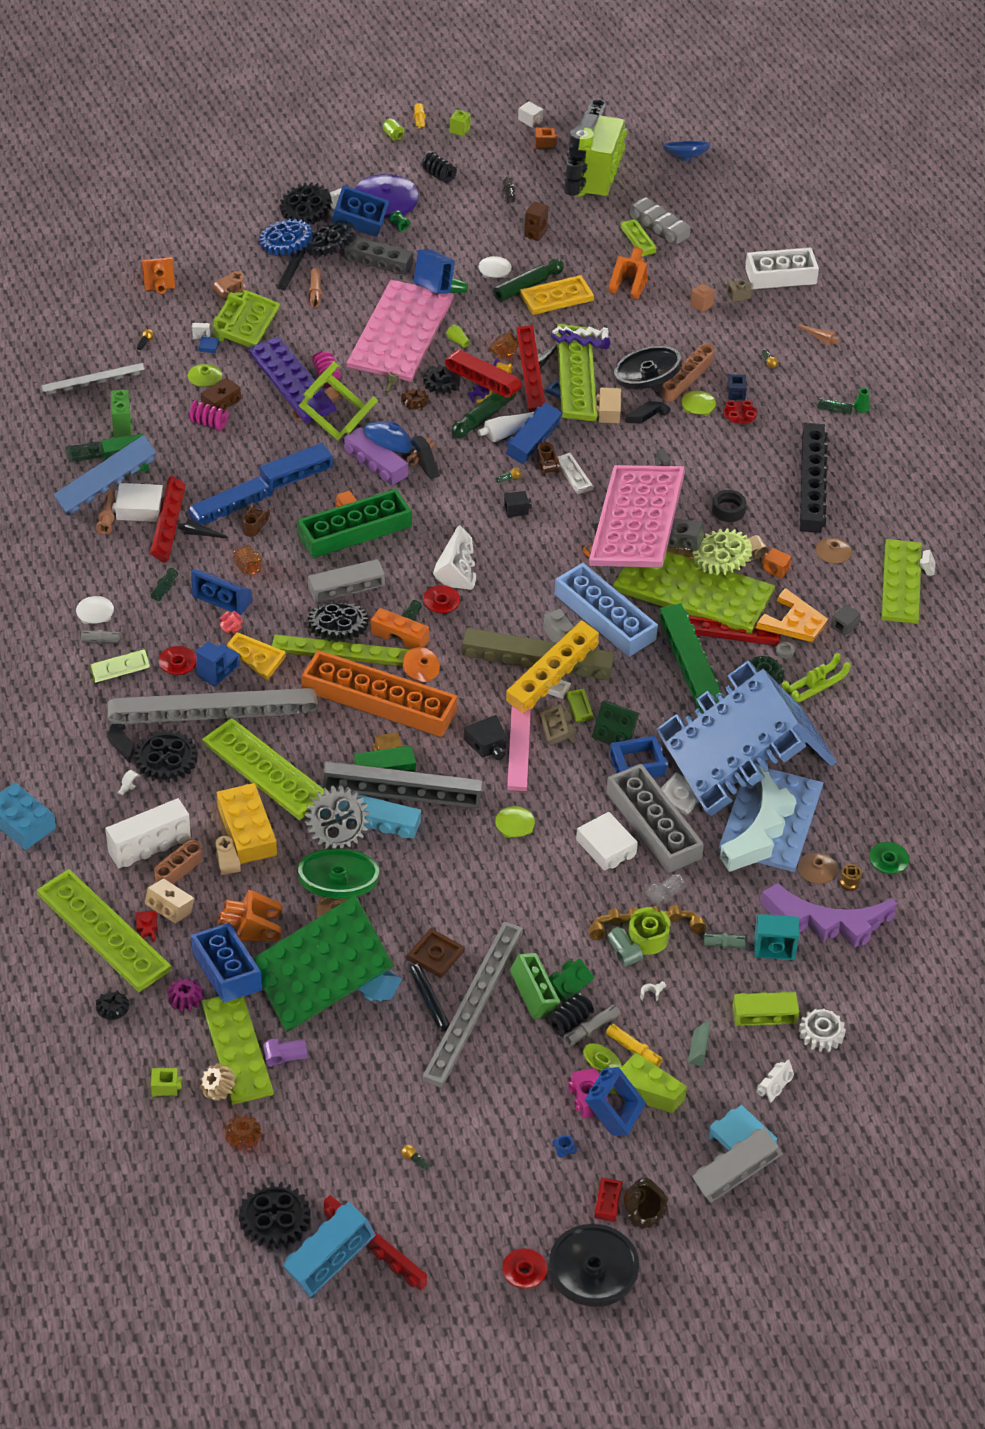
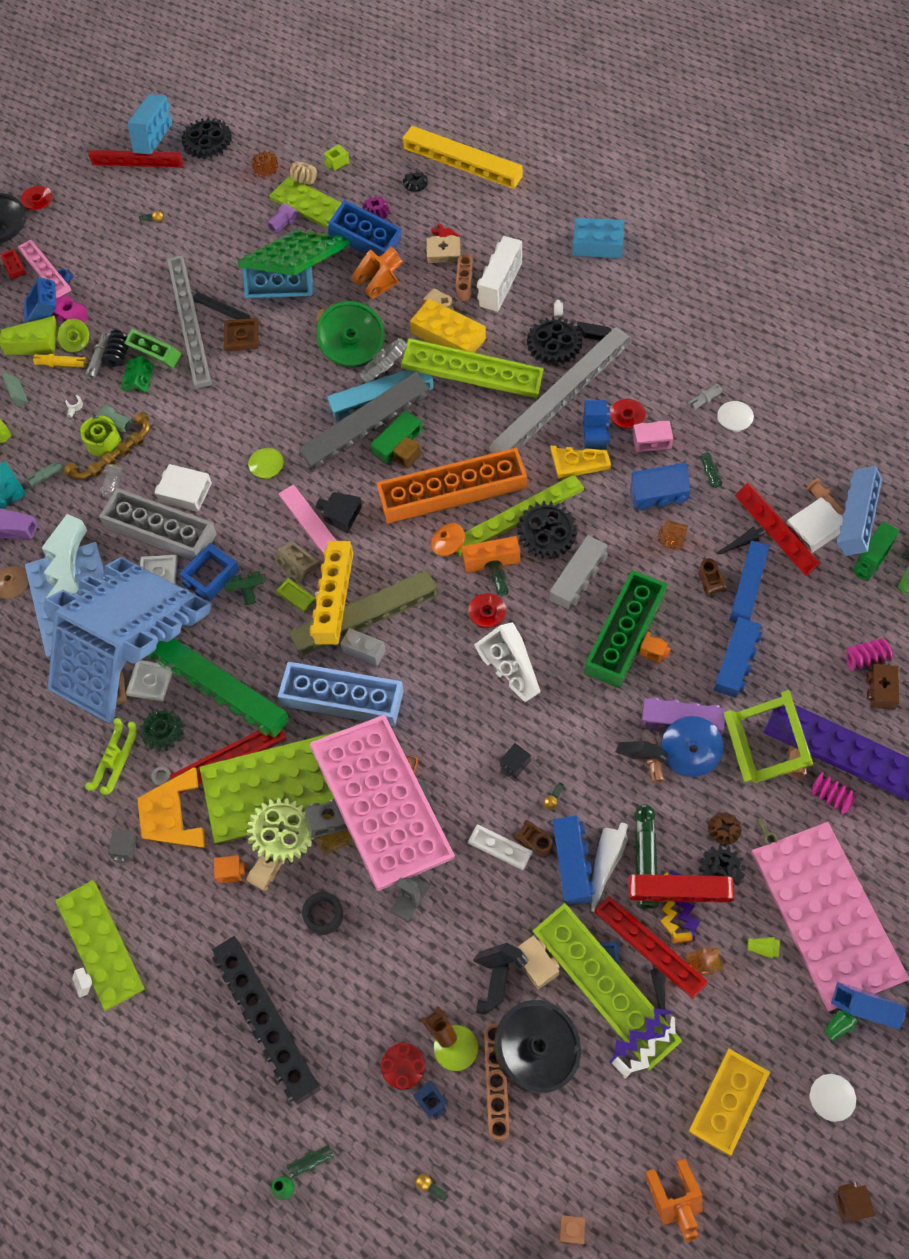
camera: 150 degrees right, 15 degrees up
(42, 993) = (463, 157): none -> yellow brick
(104, 930) = (468, 213): lime plate -> none
(119, 665) = (662, 382): lime plate -> none
(181, 628) = (652, 436): none -> bright pink brick
(231, 622) = (627, 466): coral gear -> none
(528, 279) = (778, 1099): dark green piece -> none
(579, 1161) = (43, 266): none -> bright pink tile
(631, 415) = (500, 956): none -> black piece
(701, 413) = (440, 1028): none -> reddish brown piece
(833, 550) = (196, 945): medium nougat dish -> none

